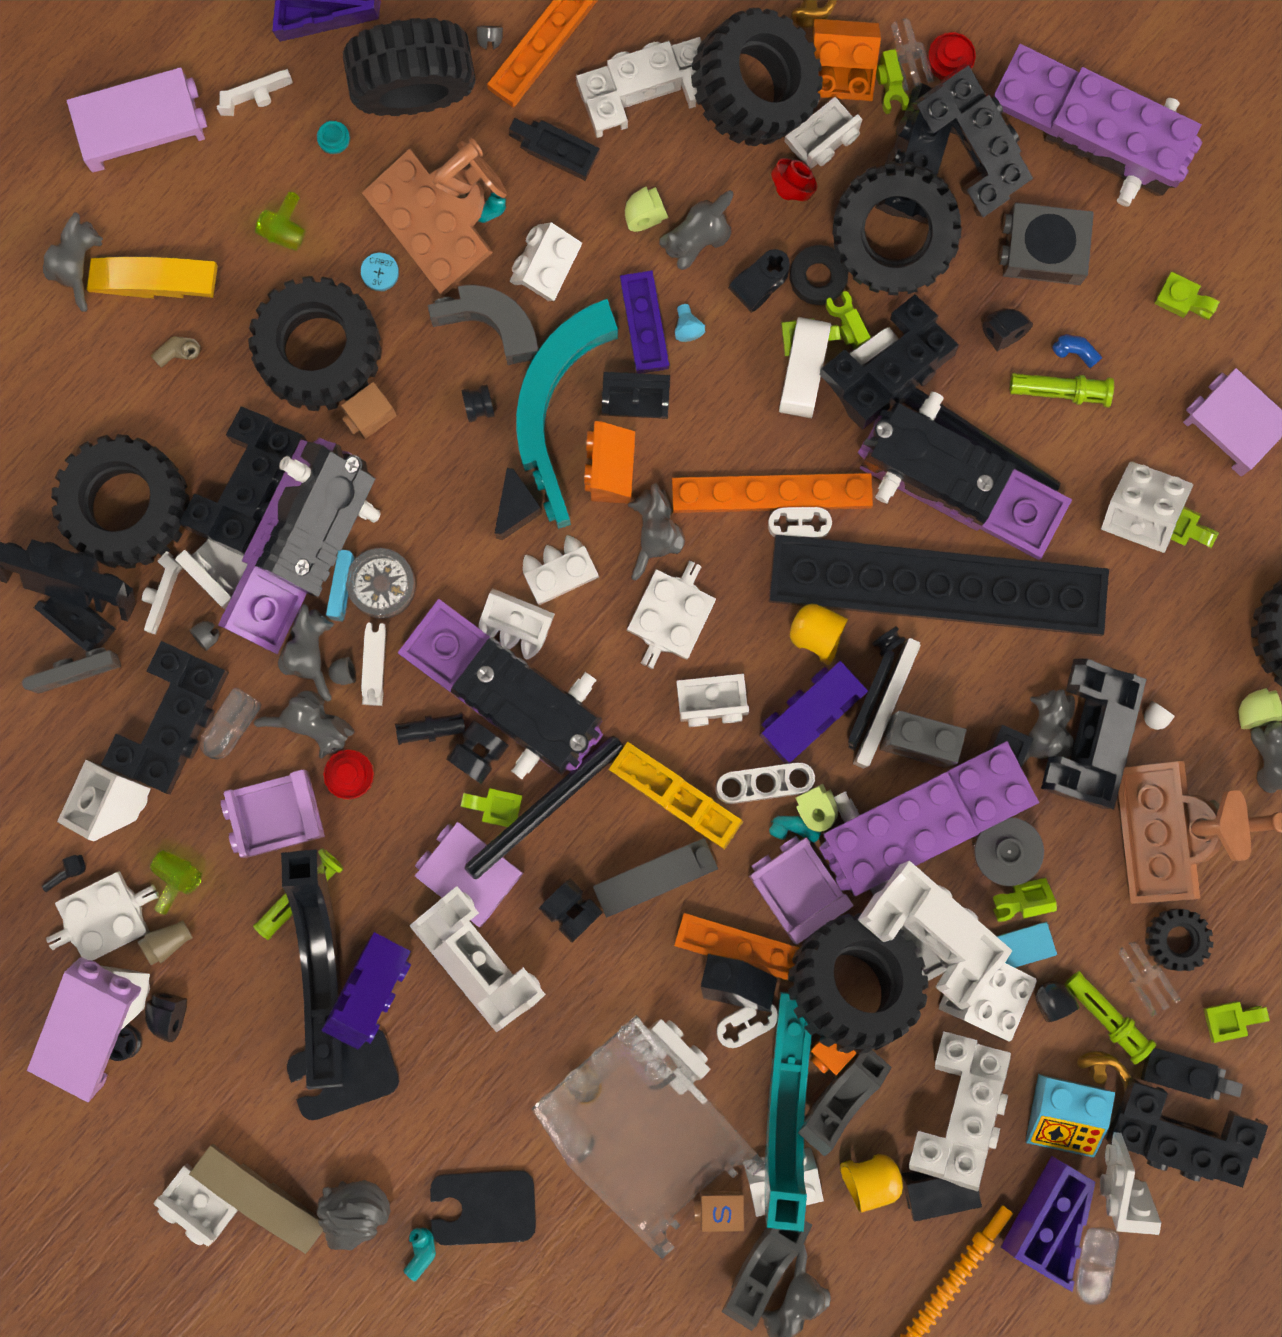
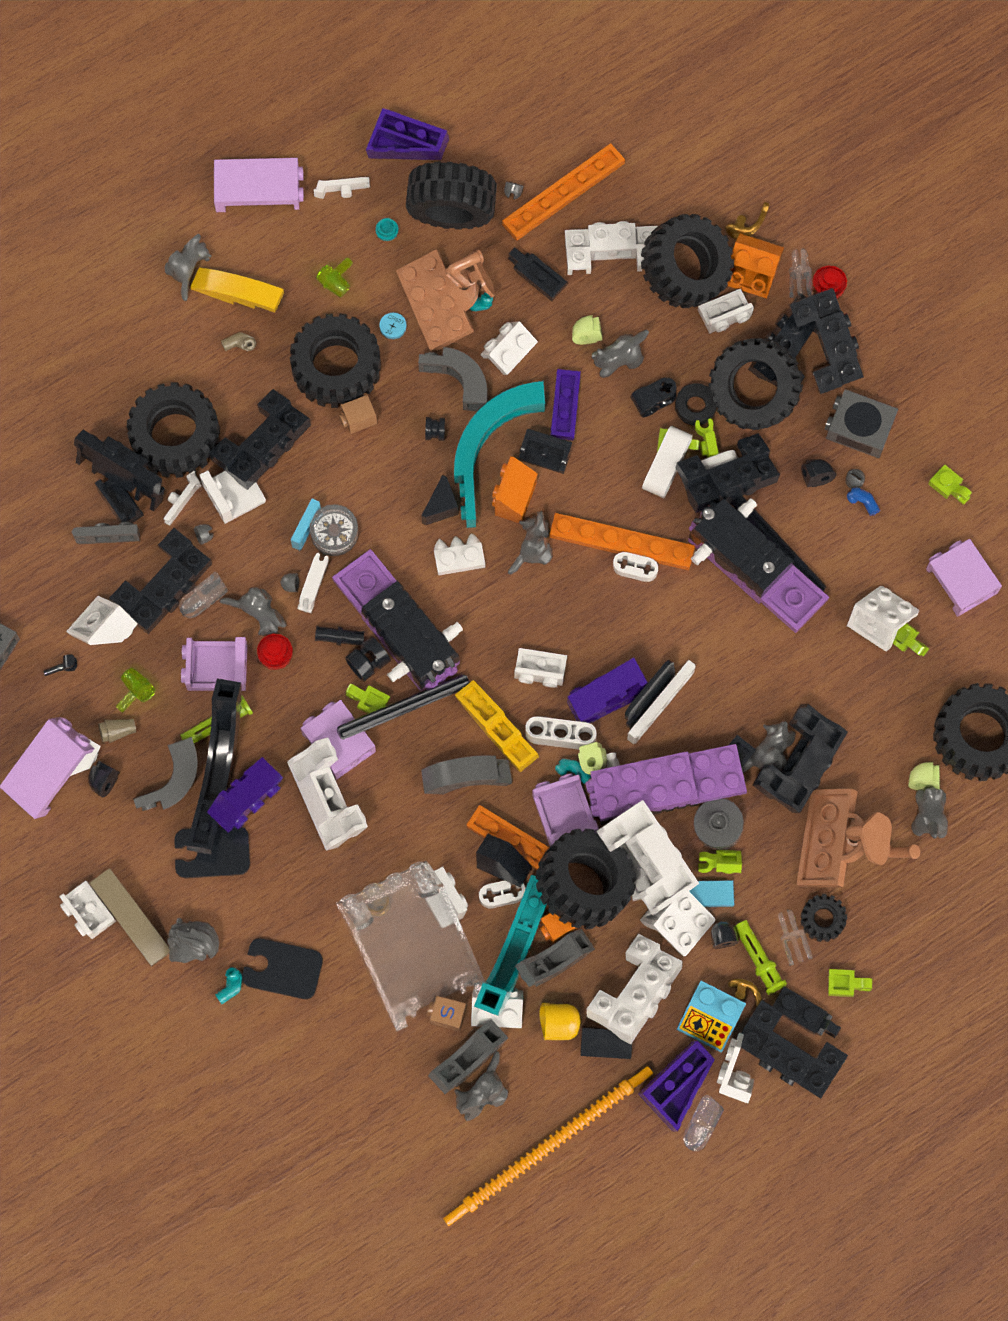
camera: 20 degrees right, 10 degrees down
(102, 917) = (79, 700): white plate -> none
(134, 1039) = (70, 796): black wheel -> none
(271, 968) = (182, 778): none -> dark grey arch
(298, 540) = (286, 485): piece -> none
(302, 654) = (266, 562): dark grey animal -> none
(515, 621) = (419, 580): white plate -> none
(562, 901) = (395, 775): black wheel -> none
(671, 614) = (528, 604): white plate -> none
(688, 326) = (595, 415): medium azure rock -> none
(793, 180) = (695, 336): red plate -> none
(818, 631) = (625, 638): yellow helmet -> none
(889, 641) = (677, 659): black bush -> none
(890, 76) = (782, 283): lime plate -> none
(923, 739) = (677, 728): dark grey brick -> none
(939, 585) = (721, 633): black plate -> none
(1055, 327) = (852, 481): none -> dark grey hinge
(1076, 389) = (856, 527): lime pin -> none
(1101, 122) = (920, 351): medium lavender piece -> none
(1157, 717) = (851, 762): white hinge -> none

